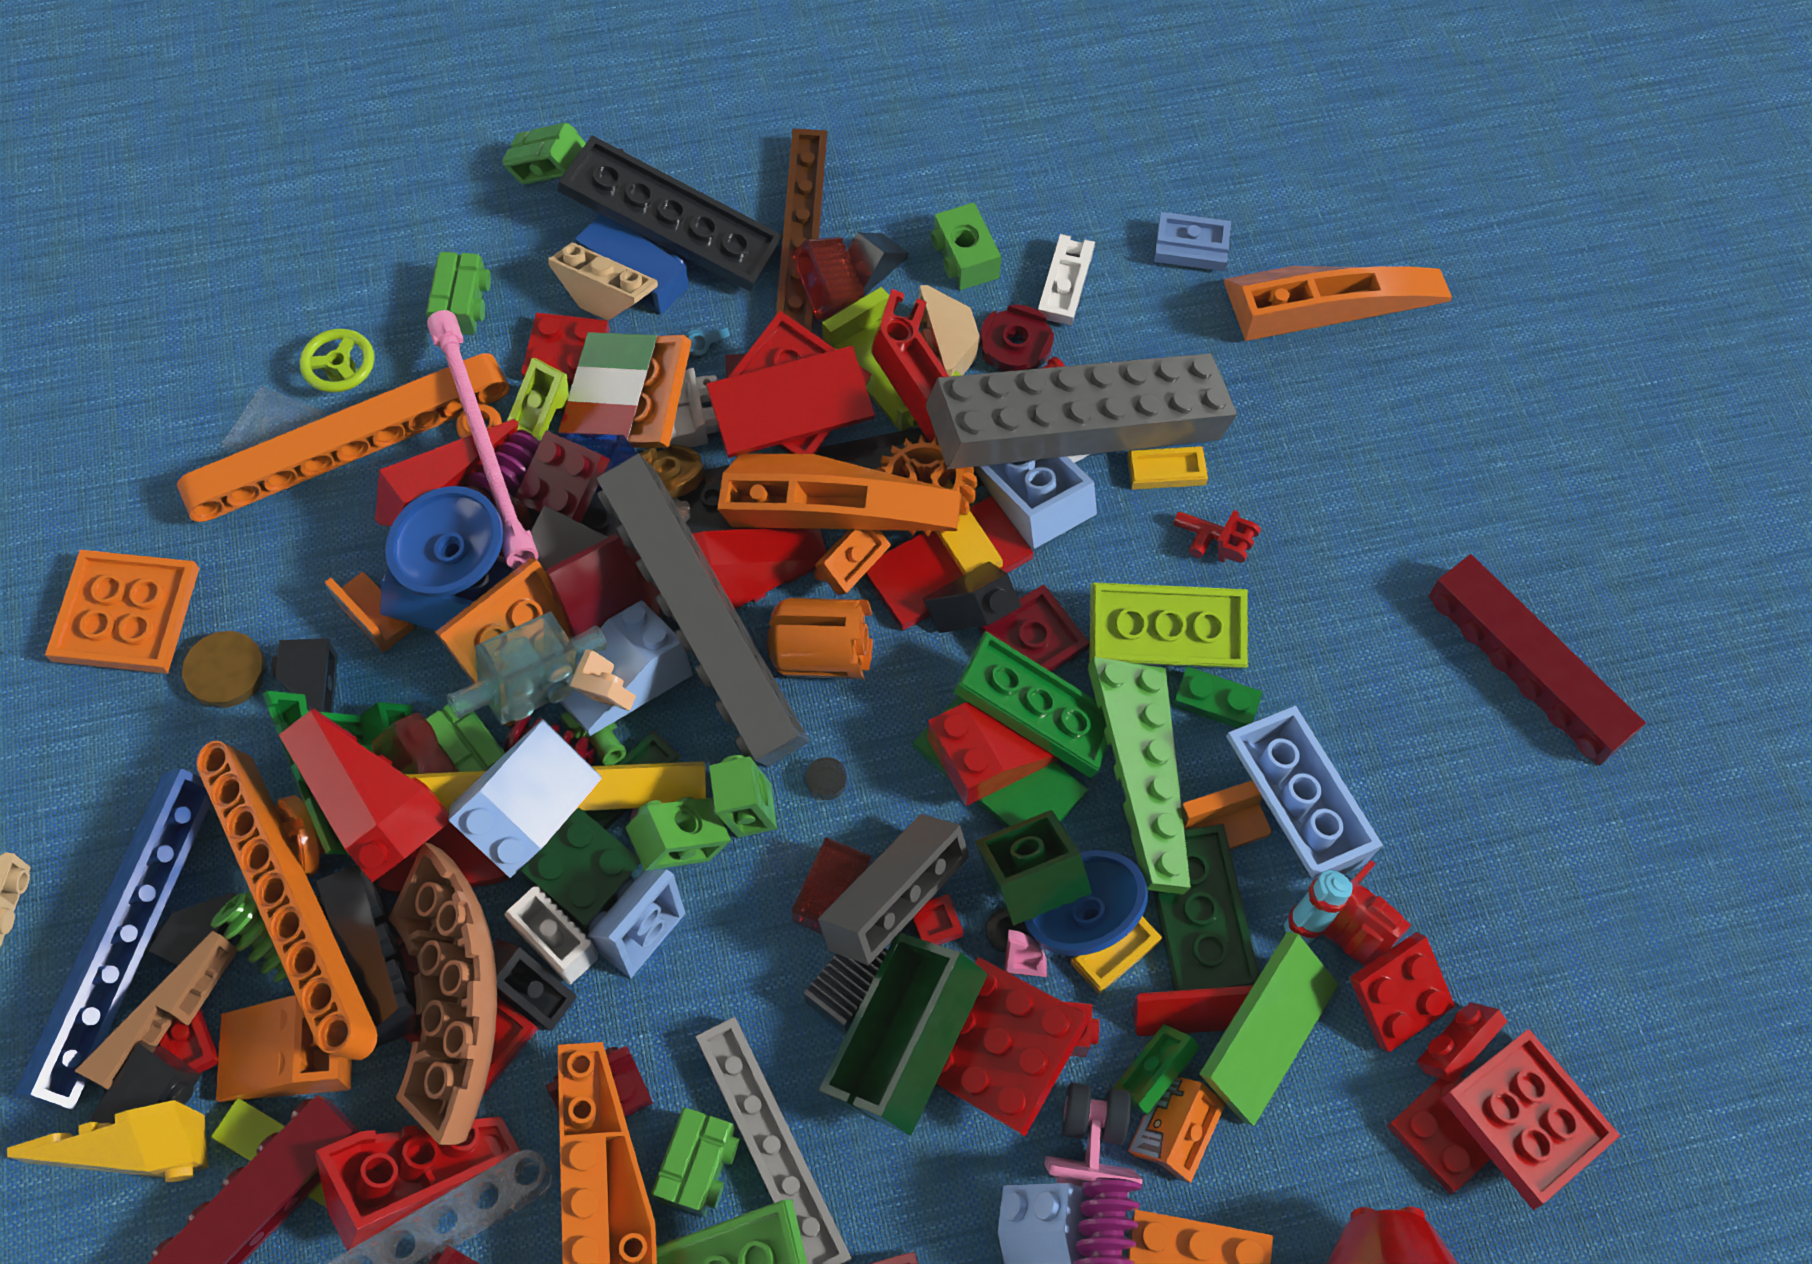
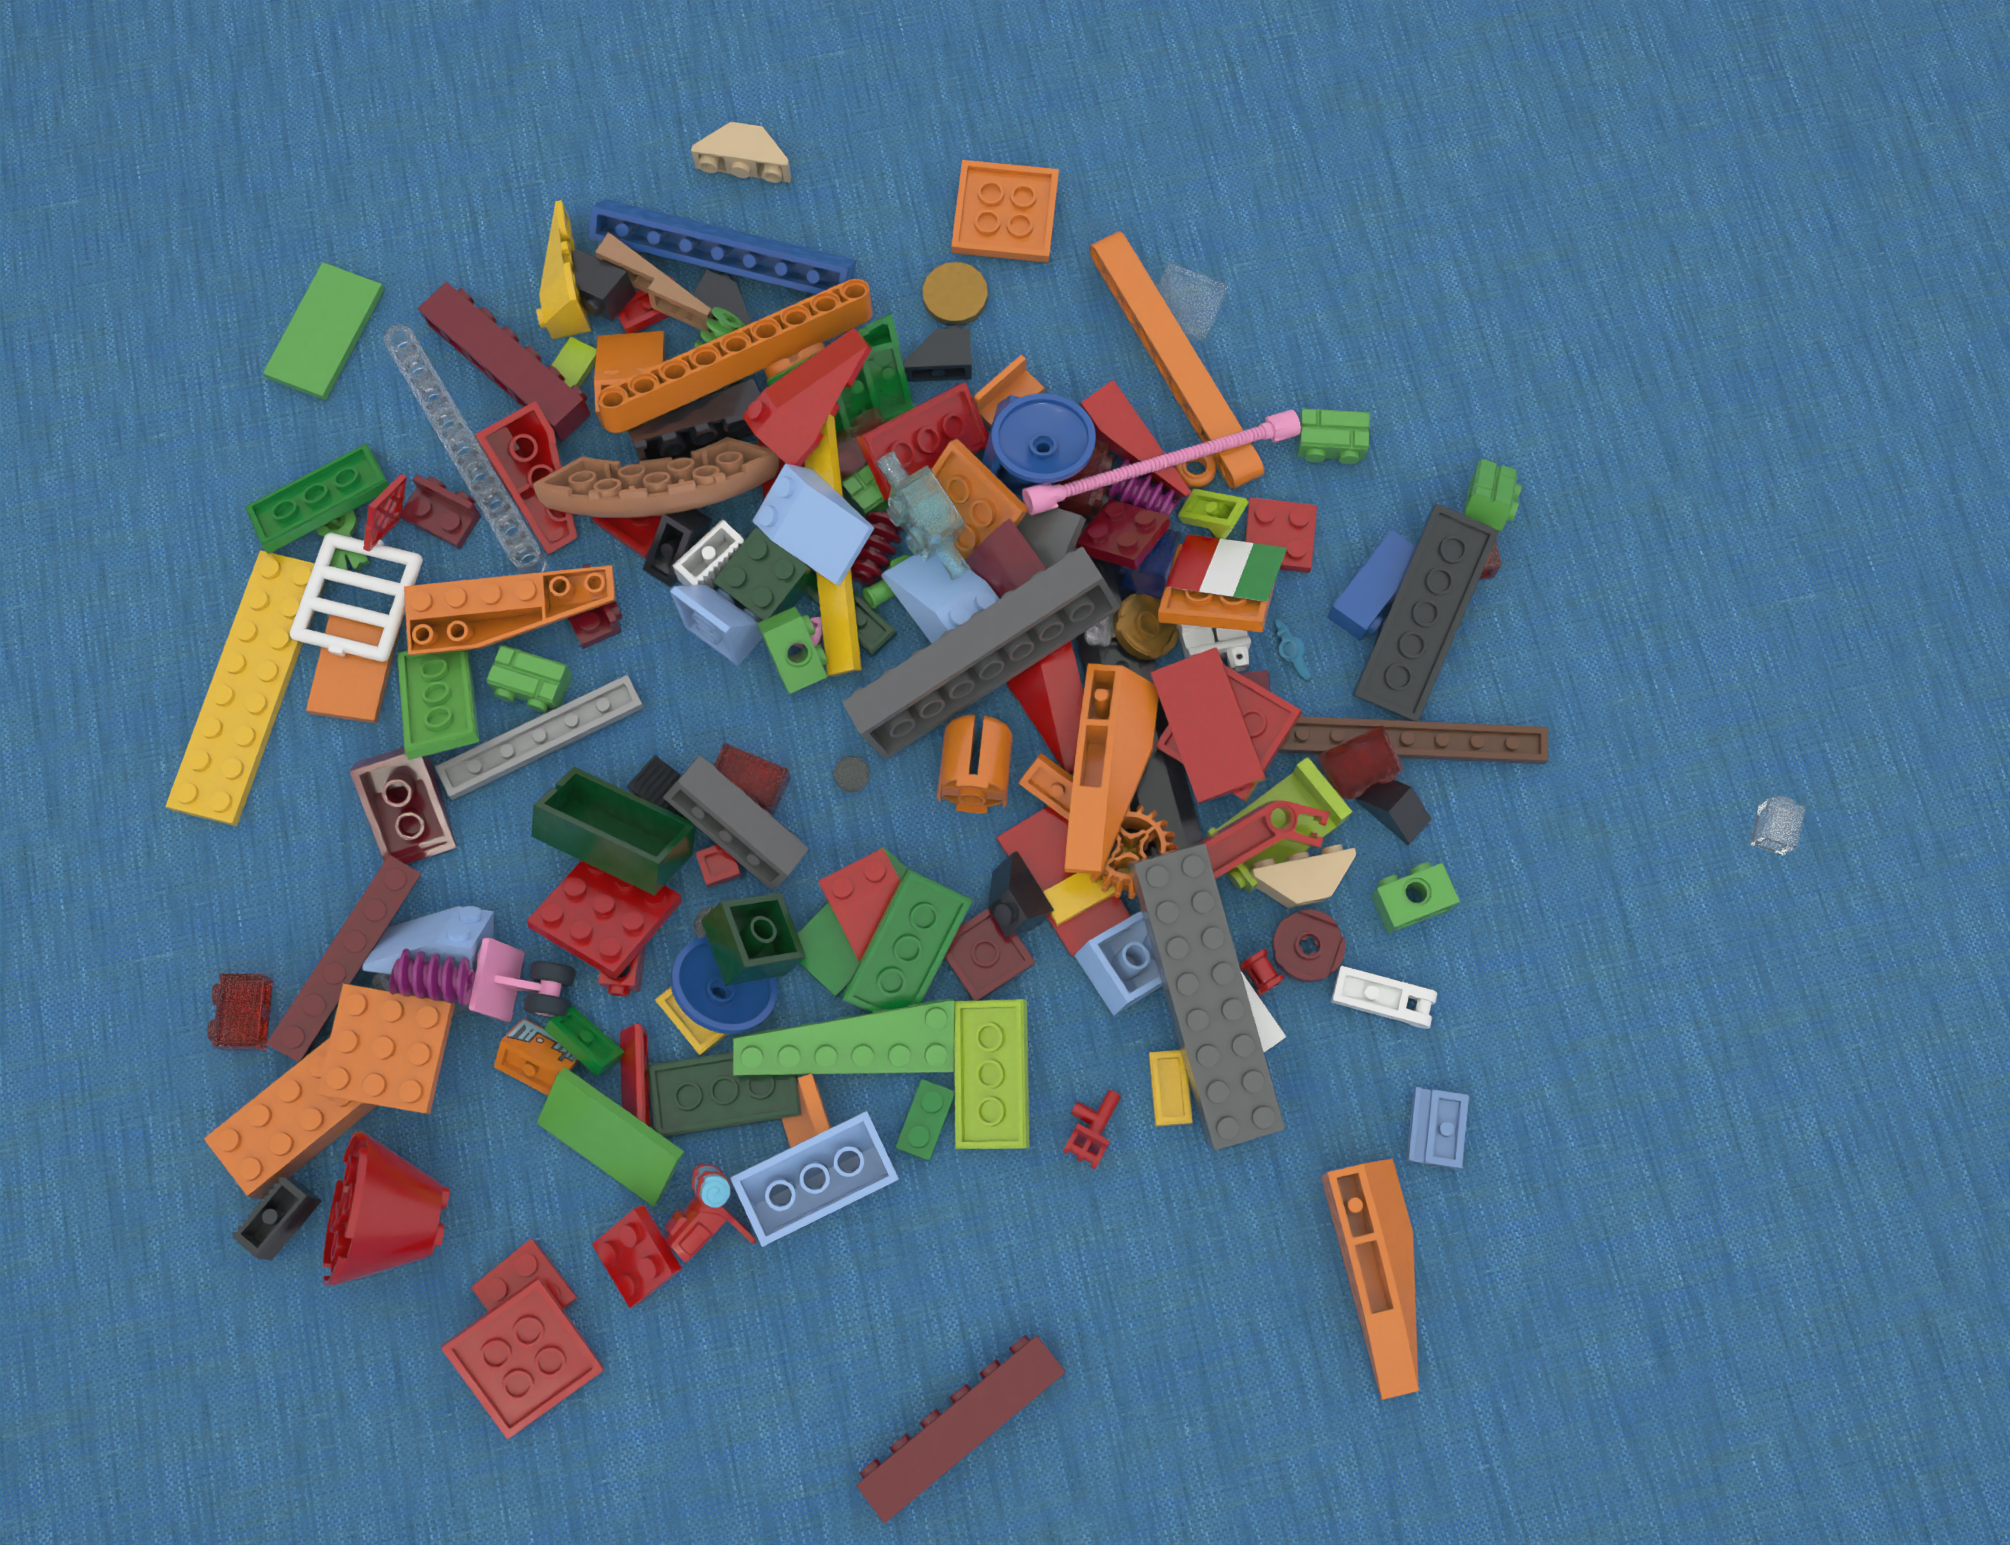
camera: 90 degrees right, 10 degrees up
(337, 363) = (1247, 357): lime piece -> none
(416, 678) = (924, 433): none -> red tile
(596, 682) = (911, 572): light nougat bracket -> none
(599, 282) = (1346, 554): tan slope -> none
(743, 796) = (821, 699): bright green brick -> none
(1024, 955) = (684, 933): bright pink tile -> none
(1461, 1041) = (595, 1307): red plate -> none

